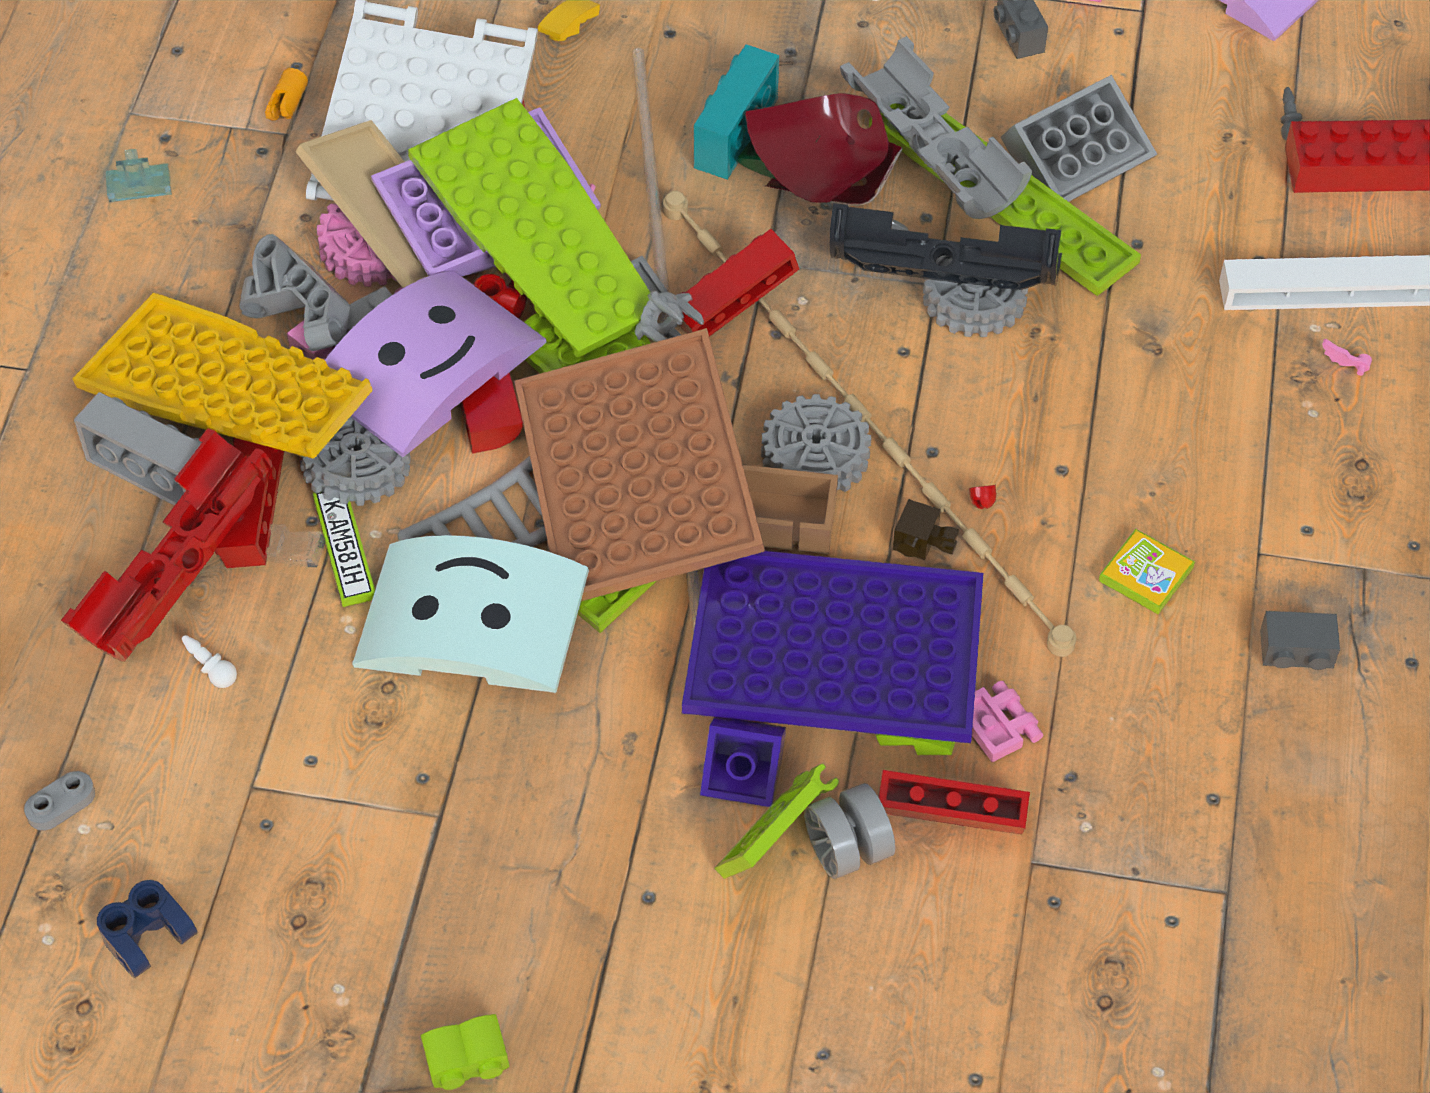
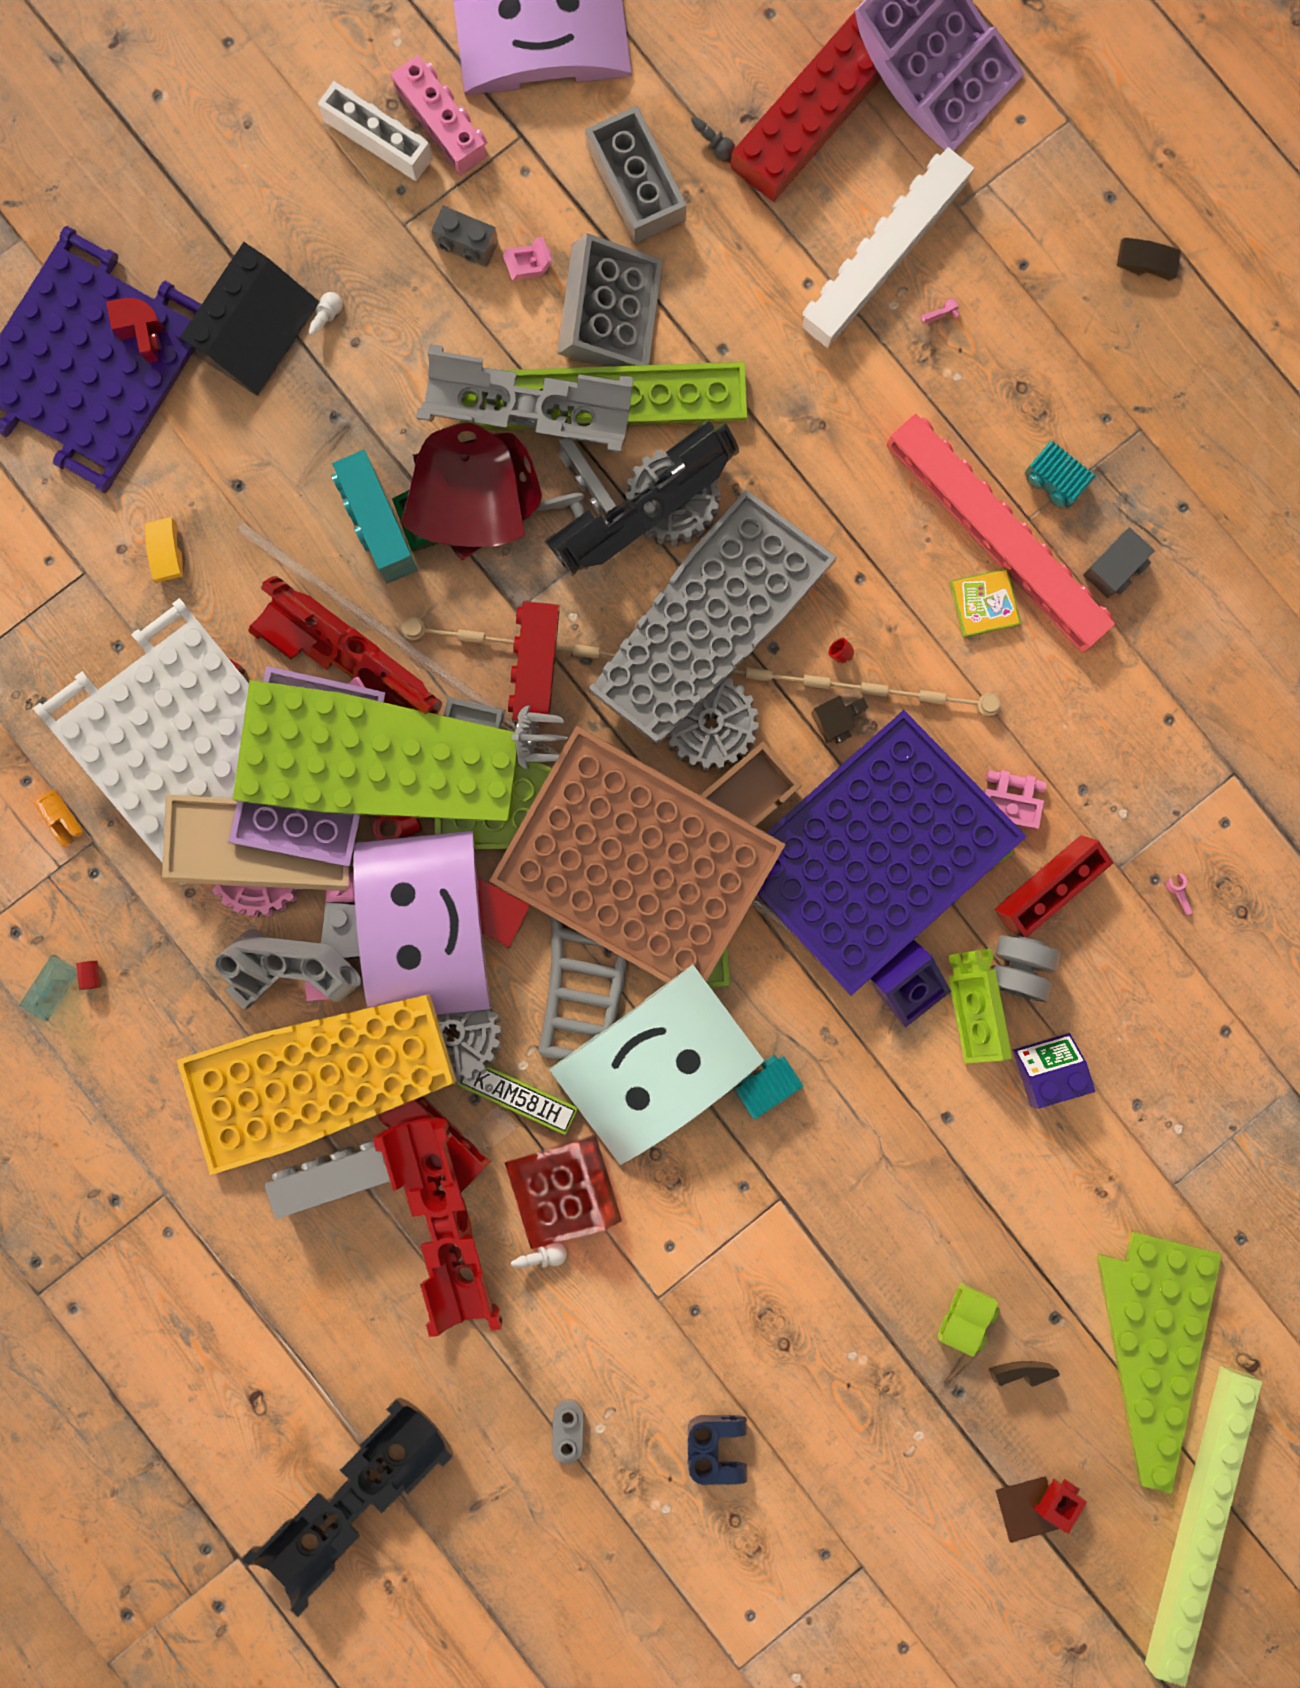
camera: 55 degrees left, 30 degrees up
(172, 196) = (88, 975): none -> red hinge
(290, 633) = (563, 1192): none -> clear red slope
(534, 718) = (768, 1086): none -> teal brick
(606, 154) = (329, 641): none -> red piece
(777, 946) = (1053, 1071): none -> dark purple slope
(909, 375) = (711, 616): none -> light grey wing
(929, 204) = (585, 477): none -> light grey plate
(1050, 72) = (529, 260): none -> bright pink bracket
(1065, 924) = (1179, 891): none -> bright pink hand
(1197, 84) = (635, 174): none -> light grey brick
(1218, 538) = (1000, 532): none -> coral brick
(1319, 538) = (1059, 475): none -> teal brick

